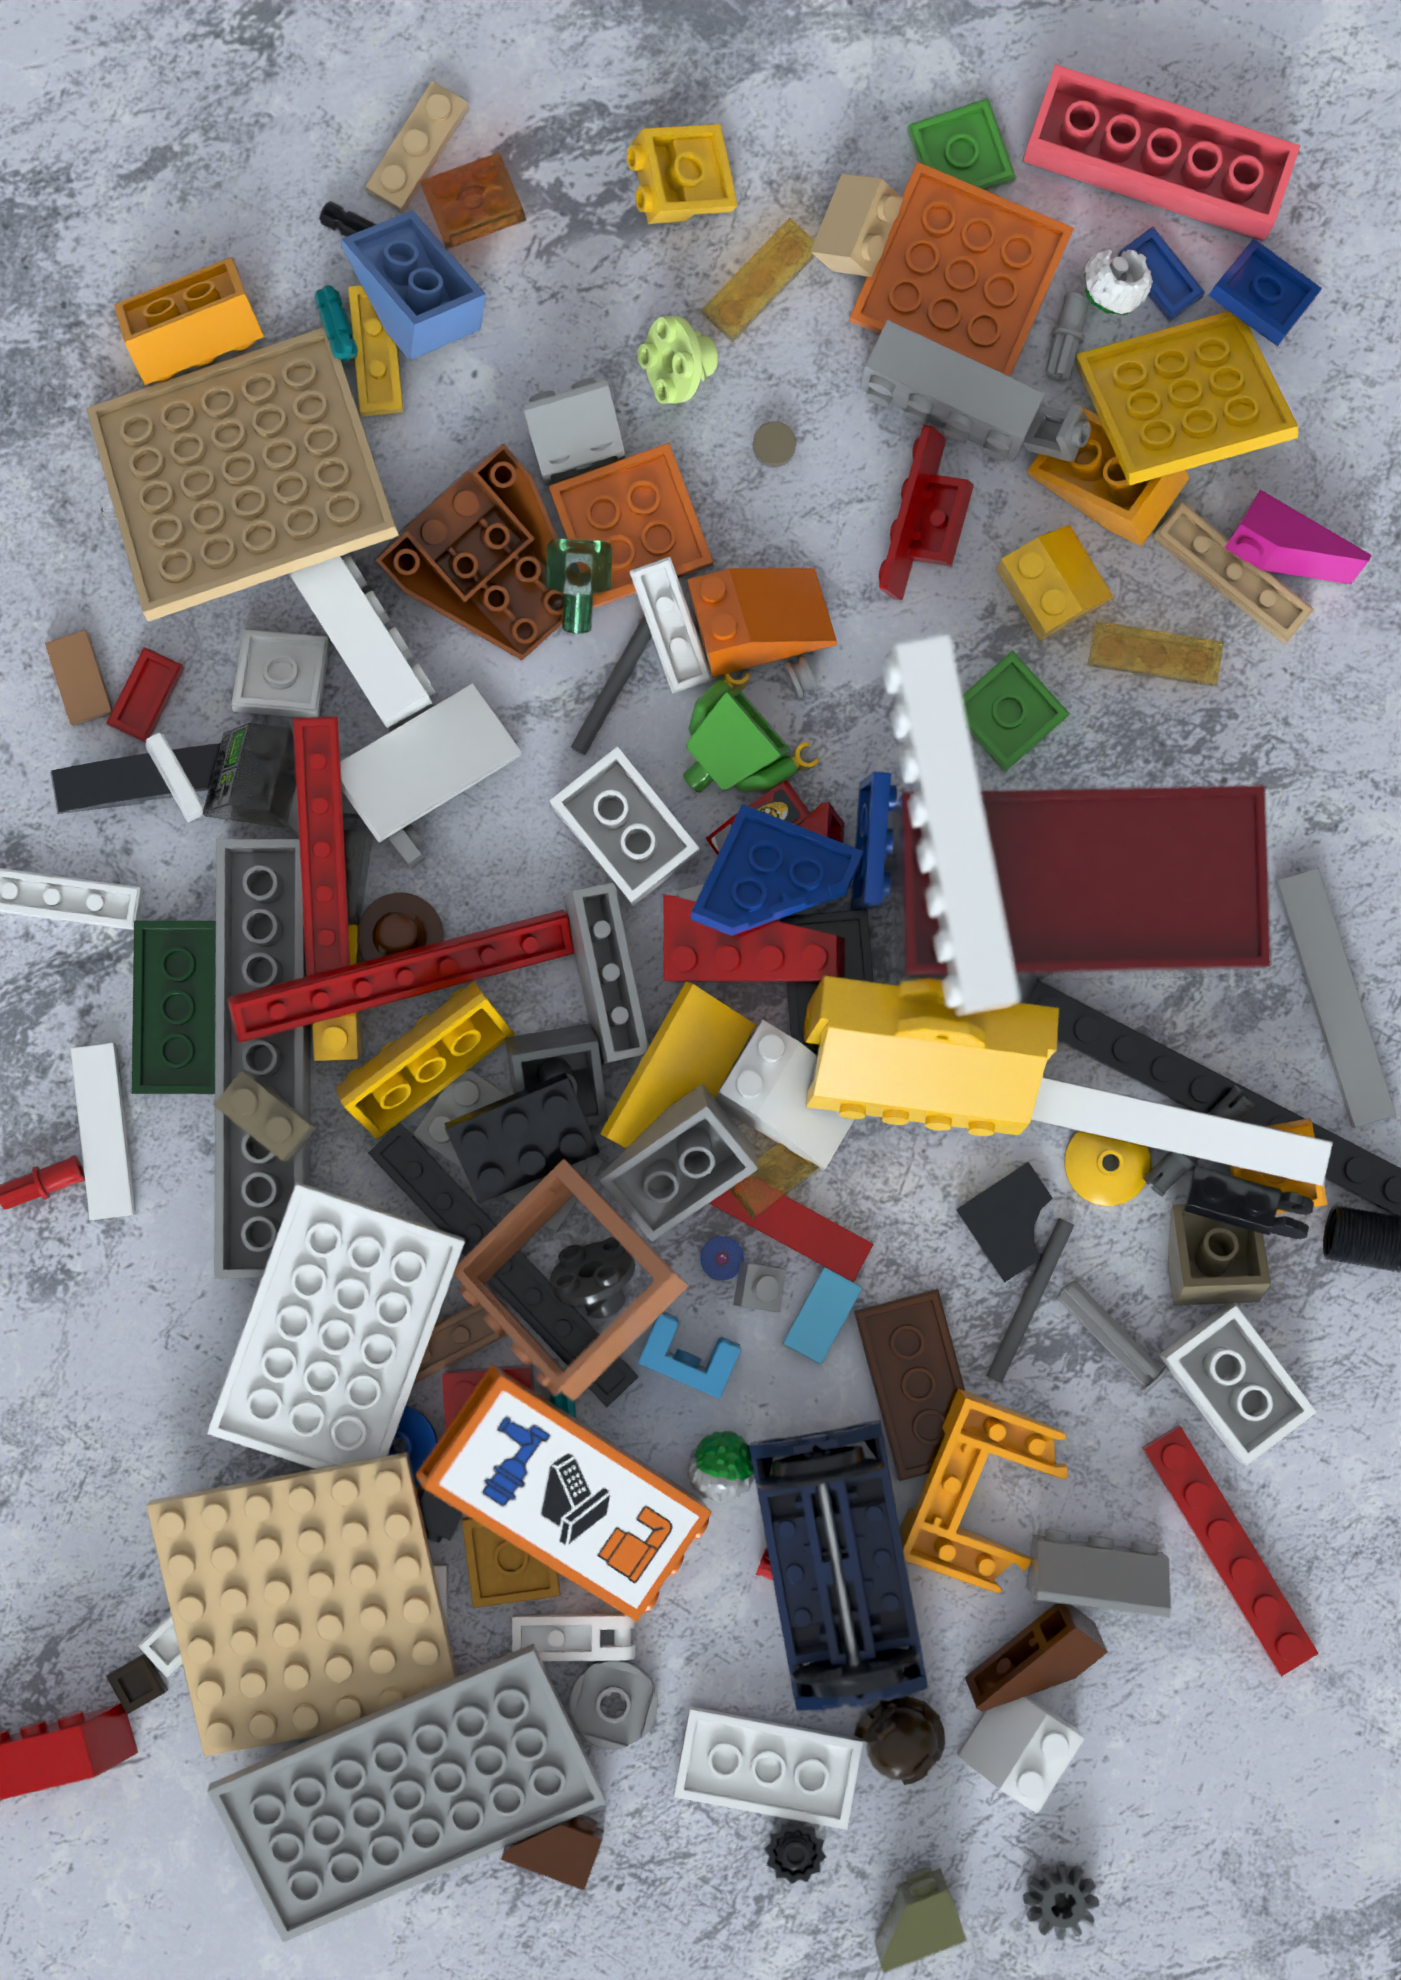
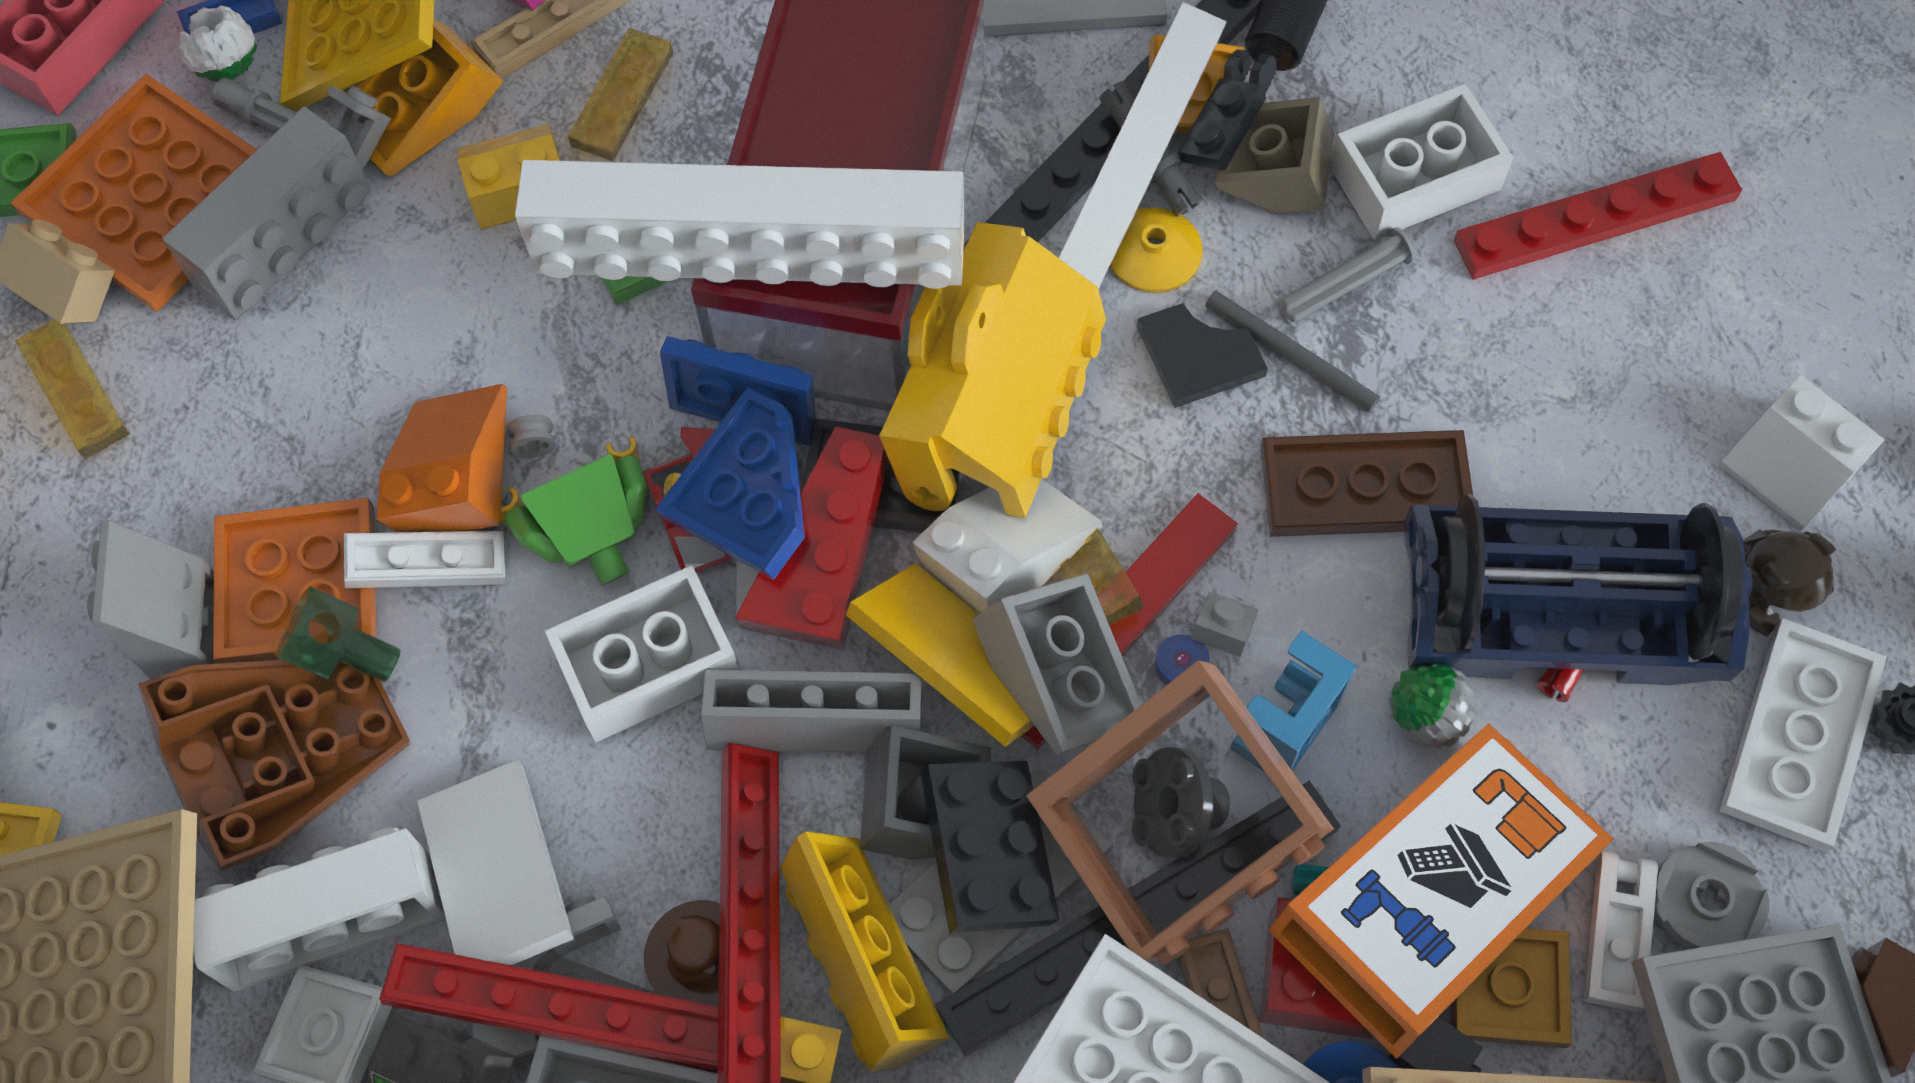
camera: 75 degrees left, 20 degrees down
(612, 688) = (476, 644): dark grey bar -> none
(676, 359) = (119, 485): yellowish green plate -> none
(774, 444) = (261, 414): dark tan tile -> none
(822, 1315) = (1270, 566): medium azure tile -> none
(928, 516) = (402, 268): red bracket -> none
(932, 1529) = (1435, 422): light orange wedge -> none
(1041, 1656) = (1702, 416): reddish brown slope -> none
(1099, 1574) = (1613, 331): light grey slope -> none

